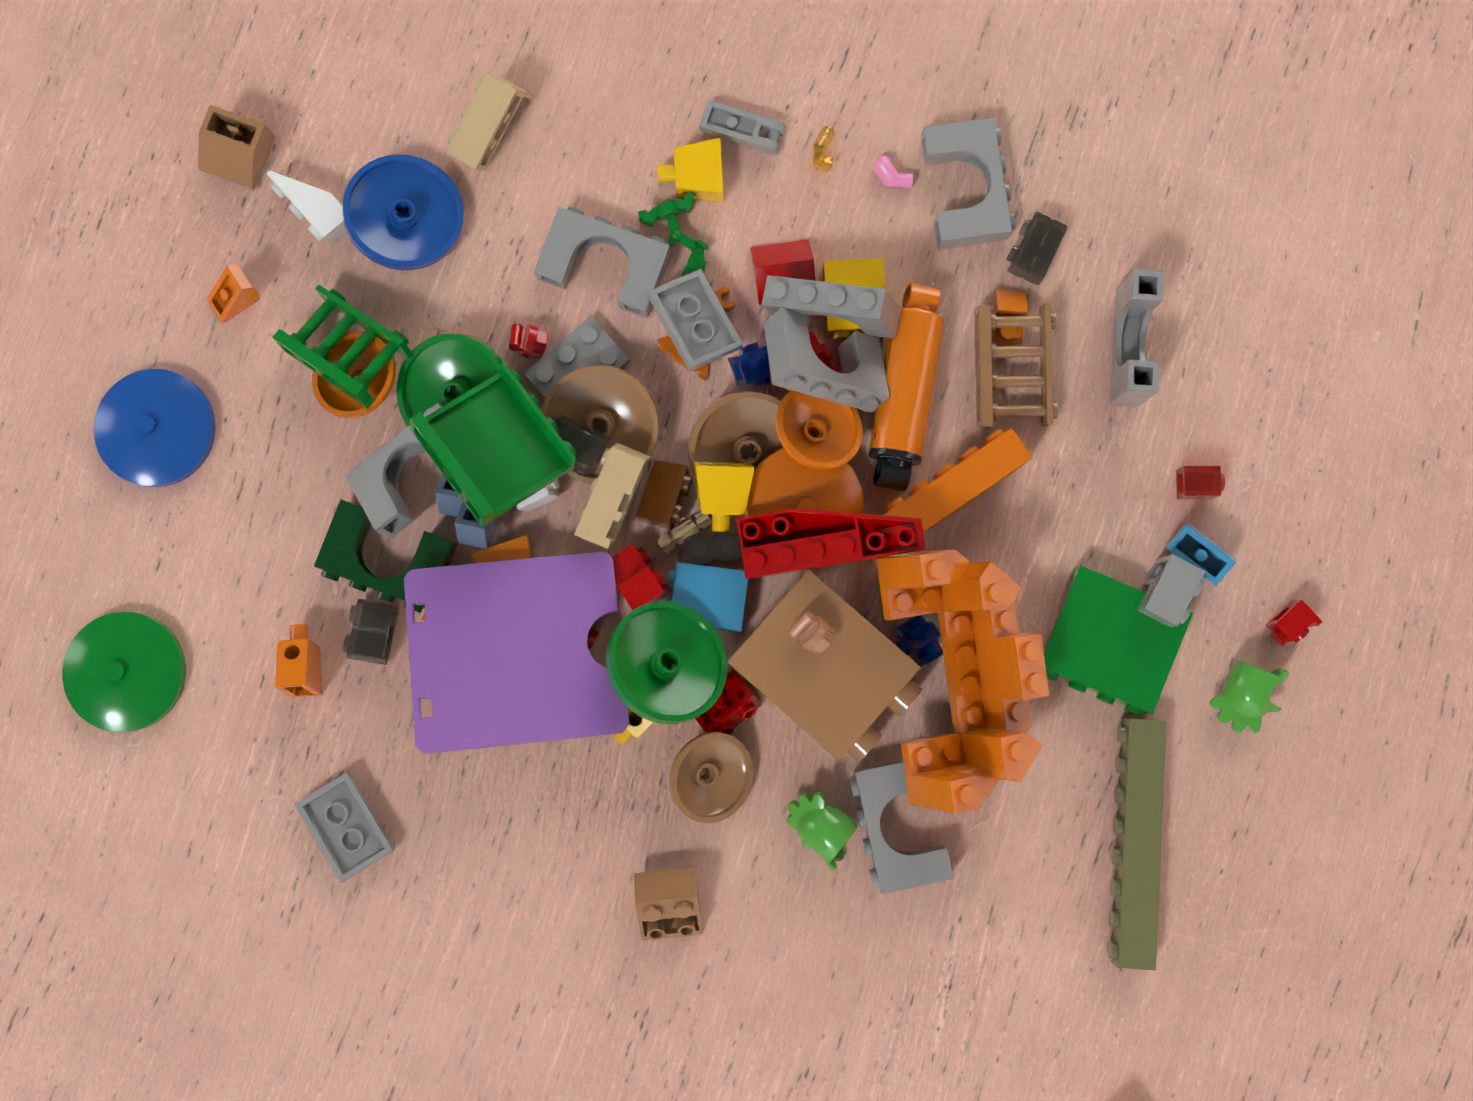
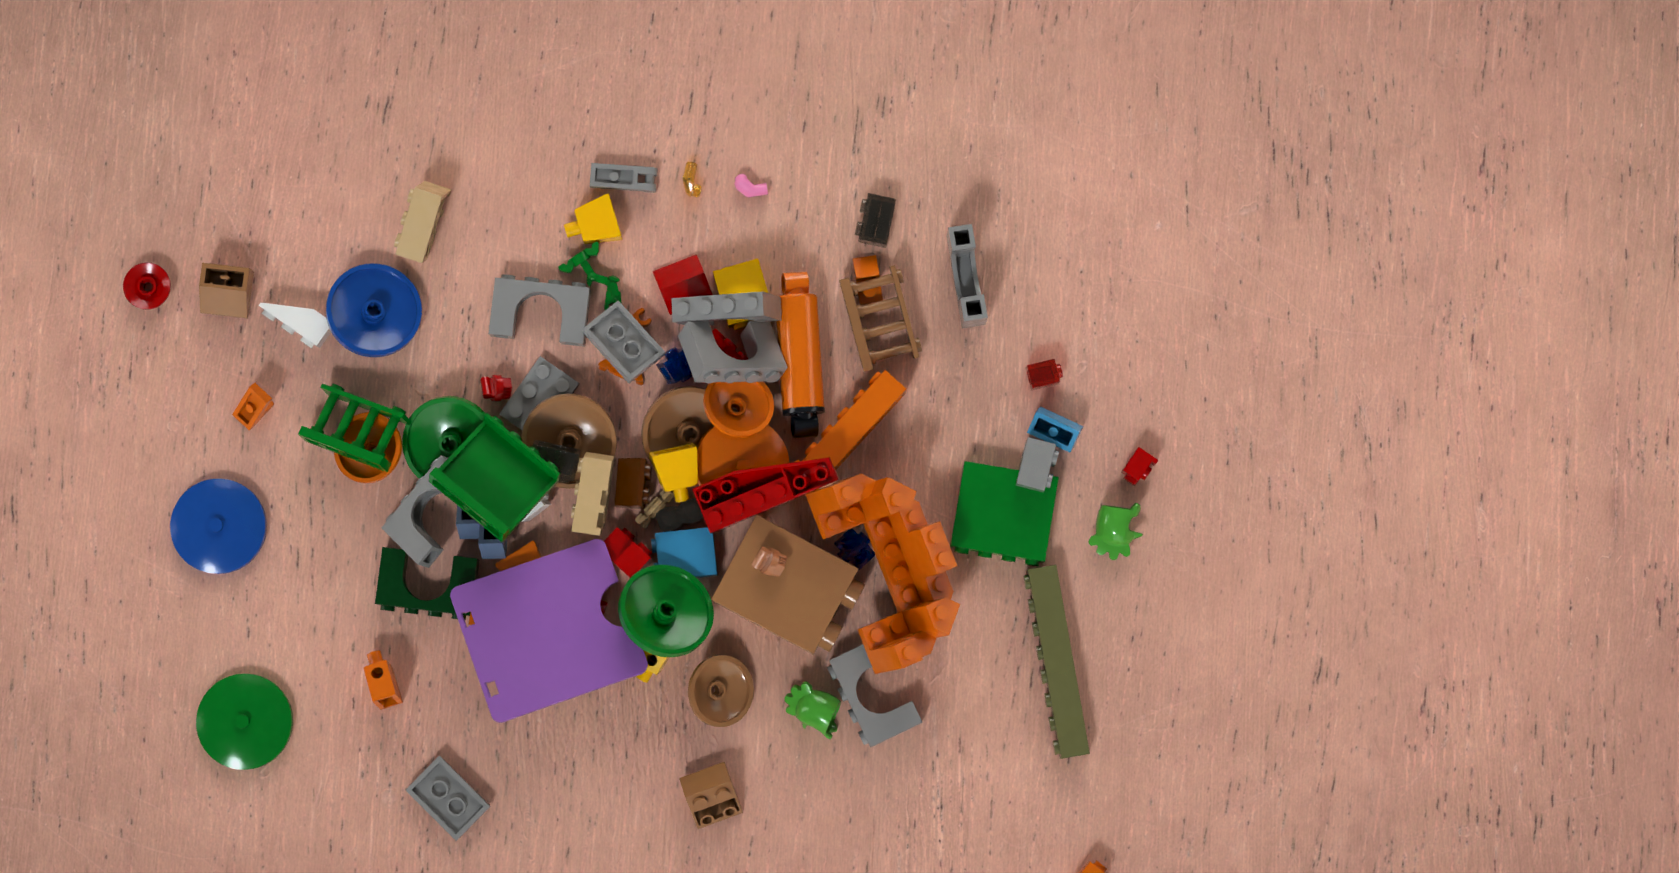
camera: 20 degrees left, 0 degrees up
(132, 116) = (135, 283): none -> red dish
(371, 631) = (430, 644): clear smoke brick -> none
(731, 708) = (723, 634): red bracket -> none
(978, 145) = (812, 148): light grey arch -> none

